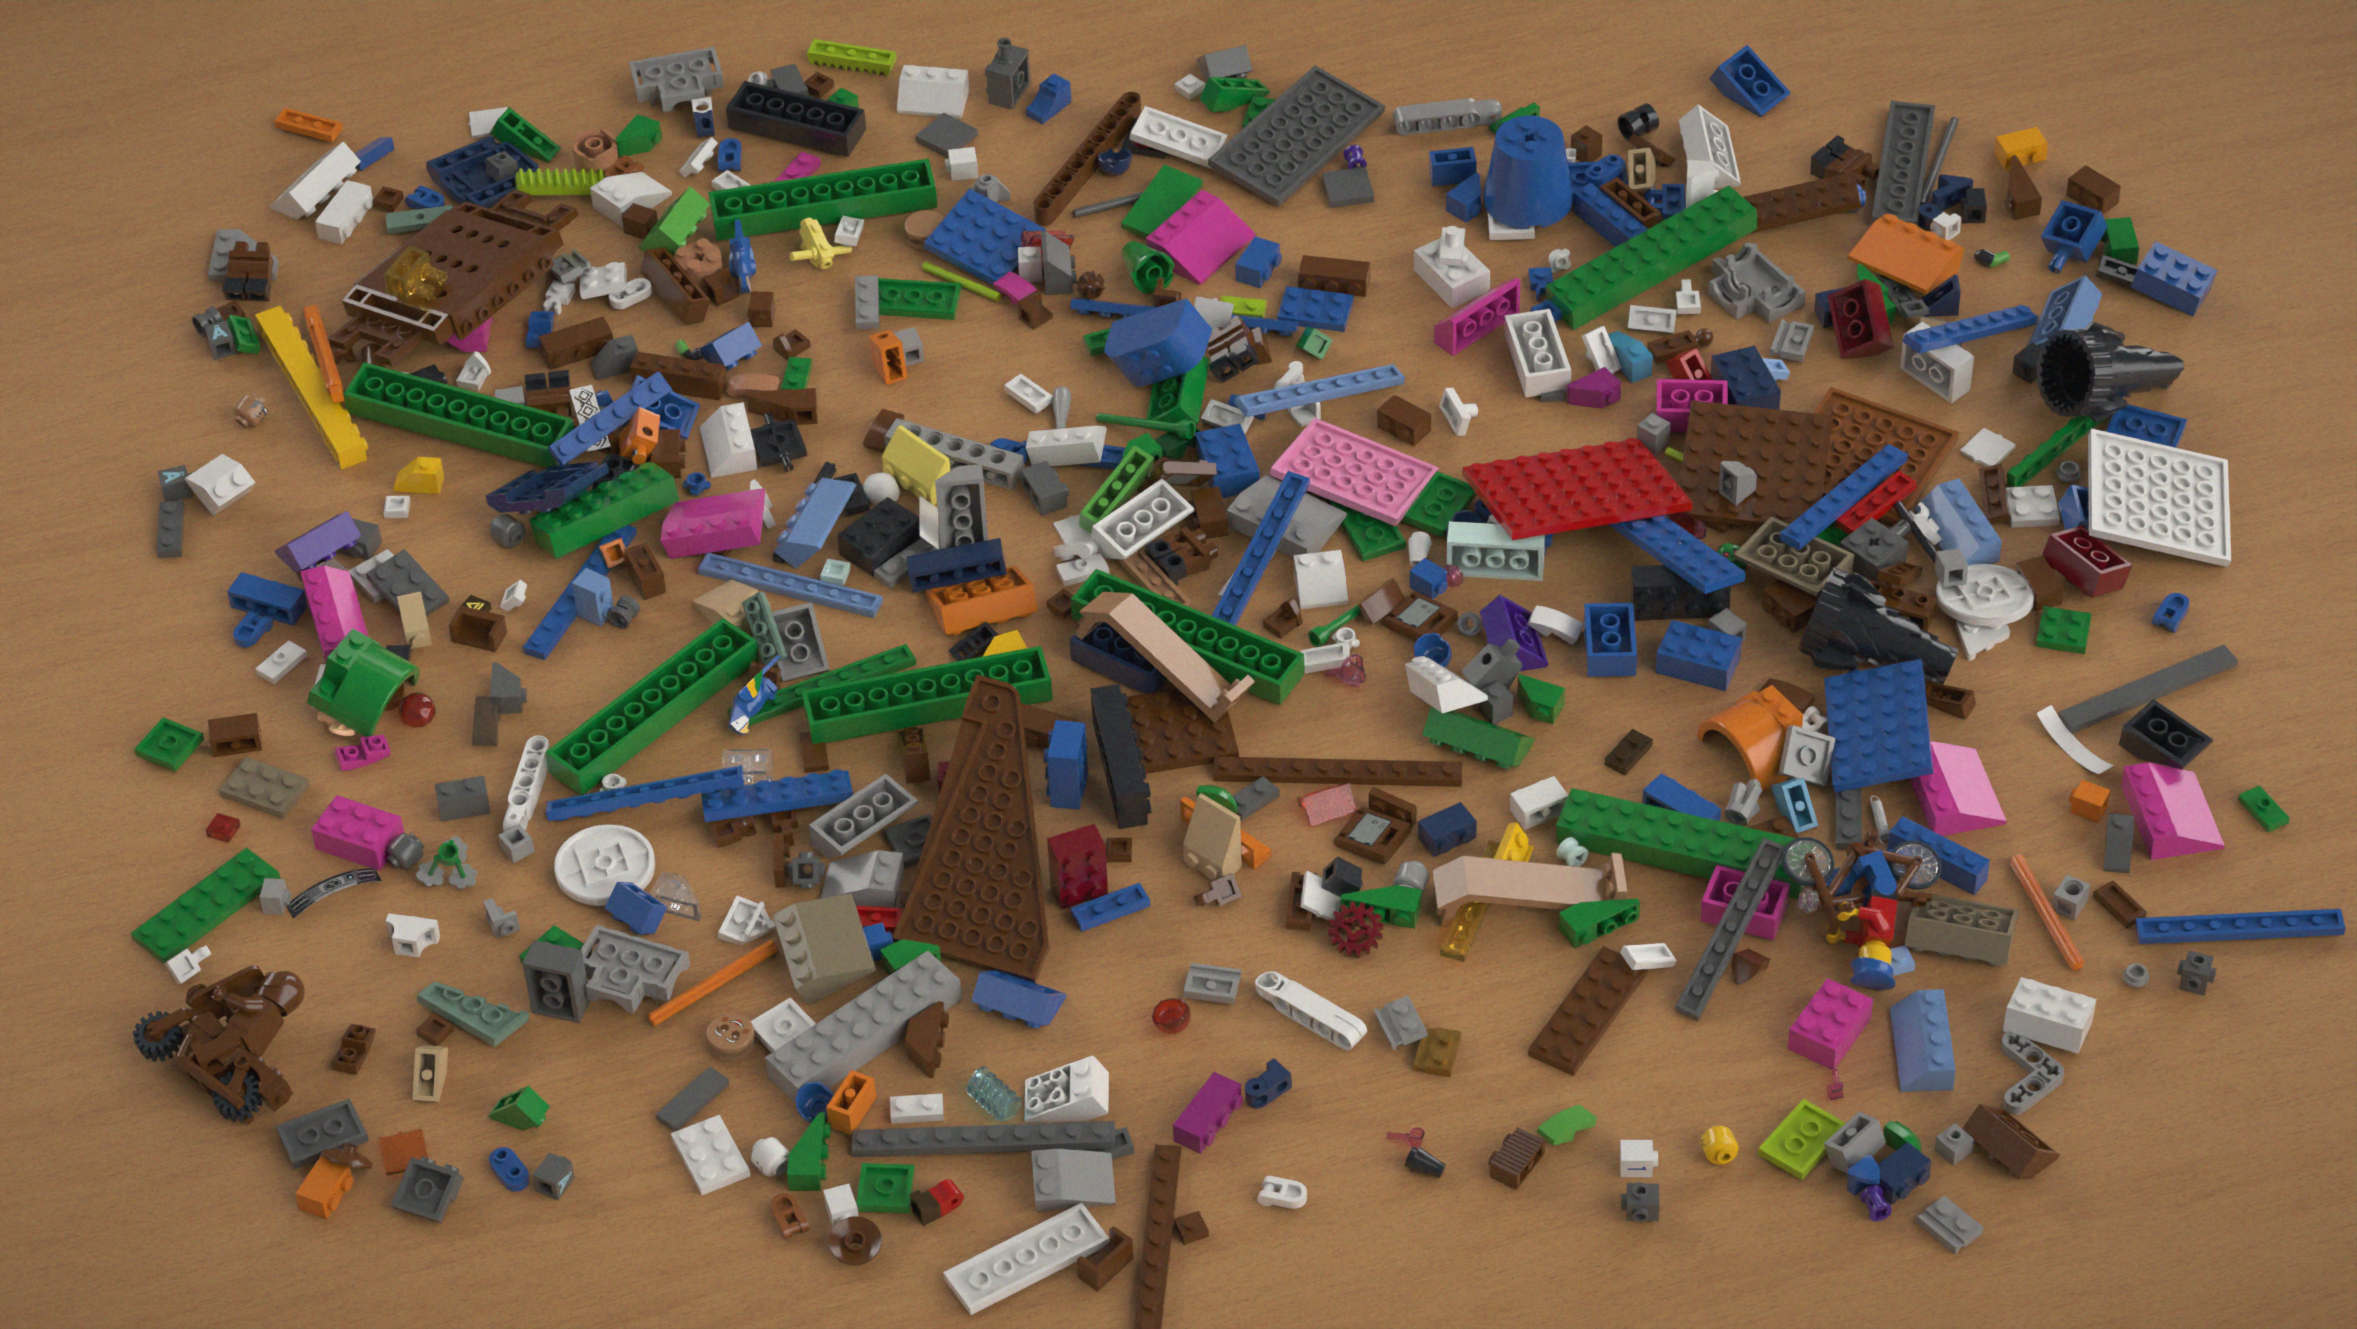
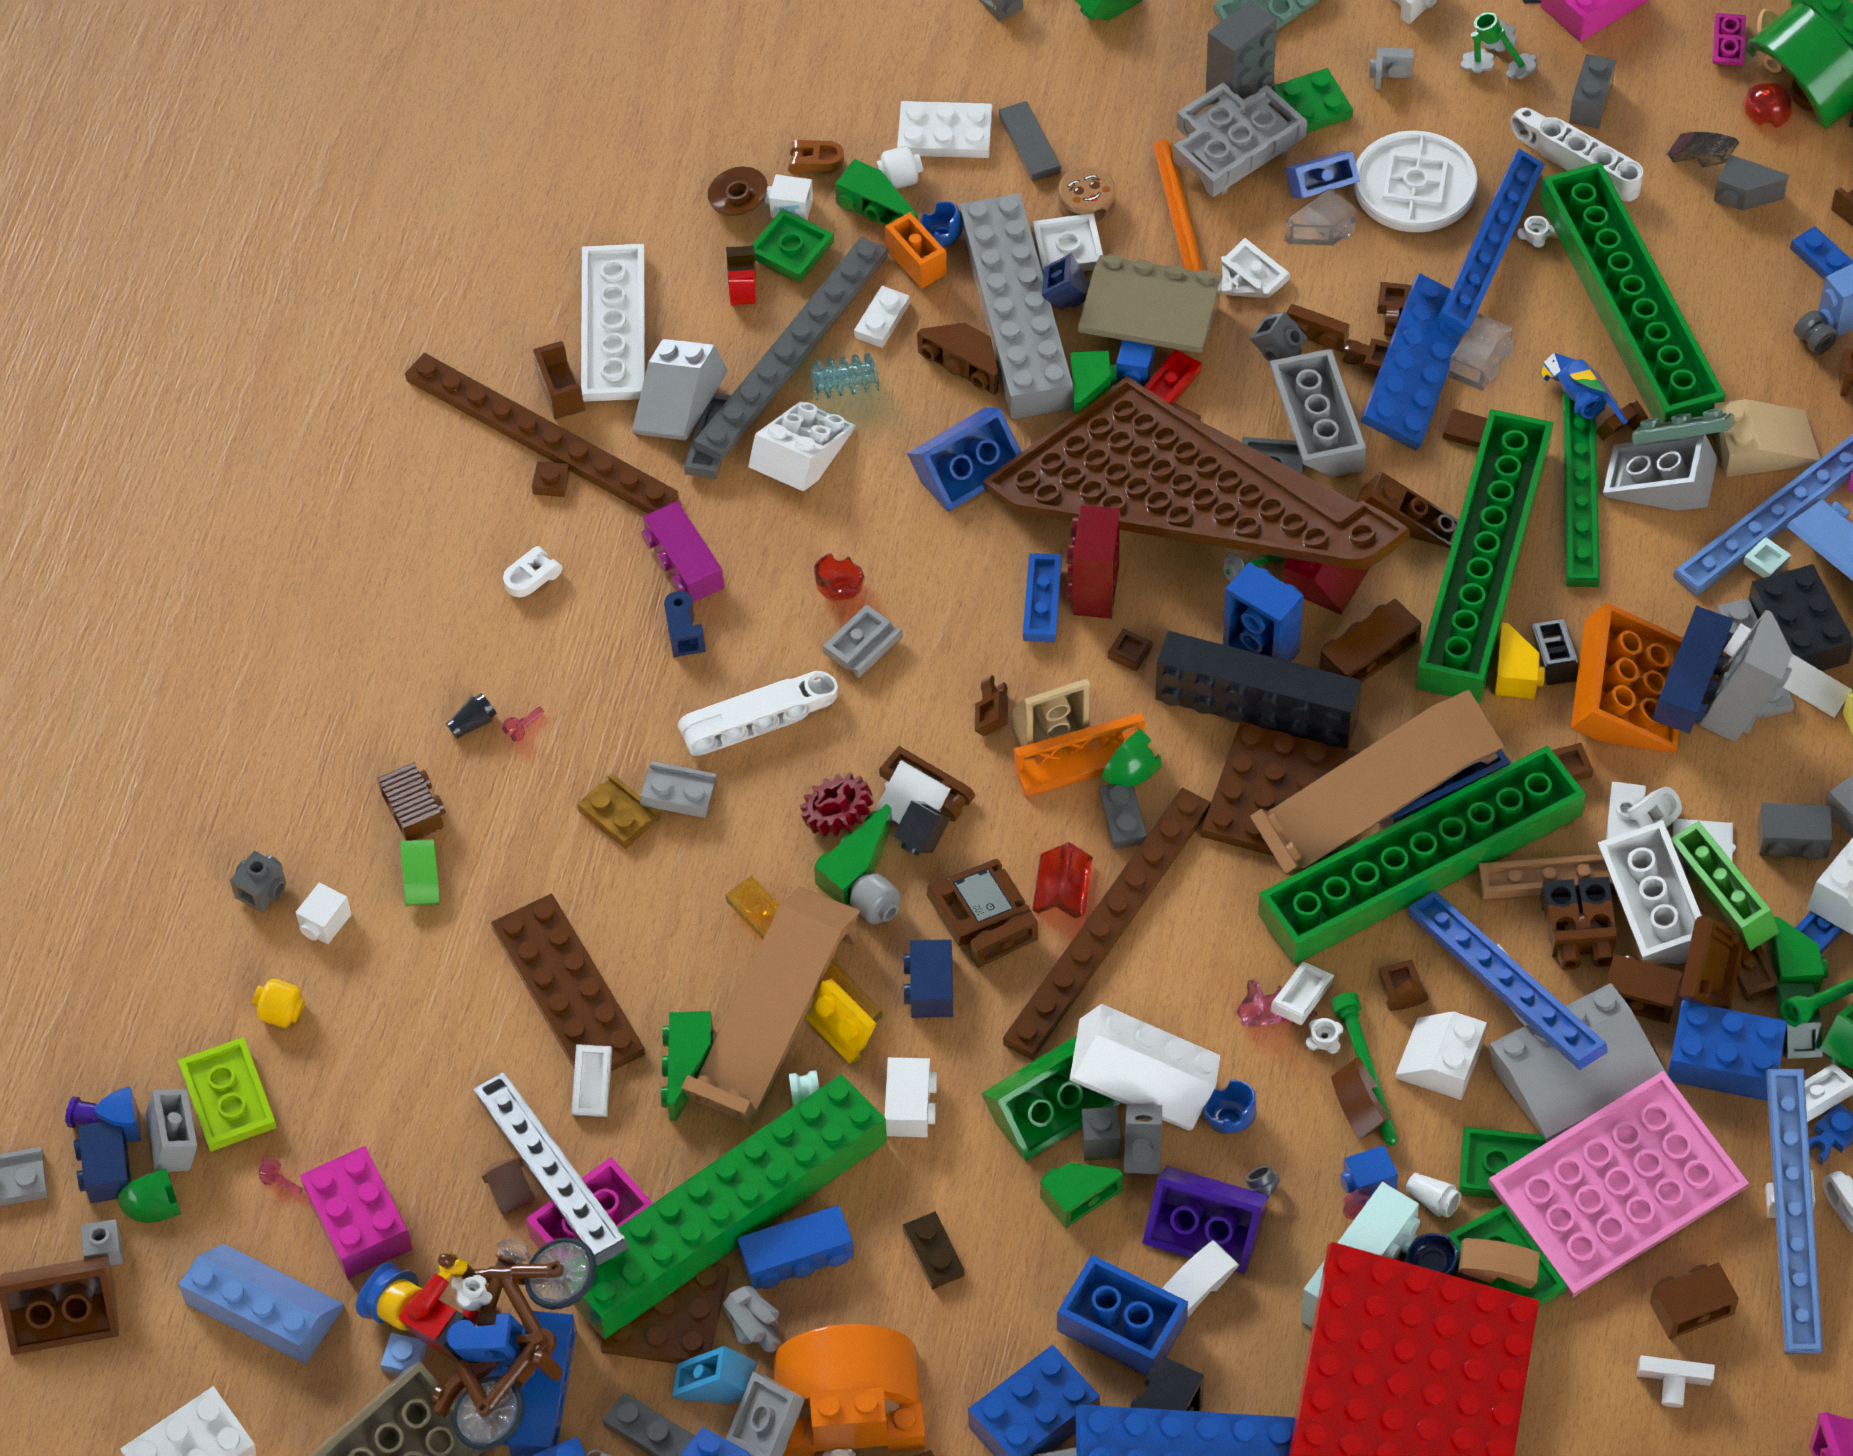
camera: 120 degrees right, 10 degrees up
(405, 851) = (1544, 22): dark grey head -> none
(516, 843) = (1492, 113): light grey plate -> none
(837, 993) = (1065, 283): none -> dark blue slope
(869, 877) = (1232, 393): light grey slope -> none
(1418, 612) = (1315, 1129): reddish brown container -> none
(1449, 494) = (1495, 1259): none -> medium nougat slope
(1854, 895) = (471, 1292): none -> white plate
(2037, 1073) = (126, 1399): light grey beam -> none

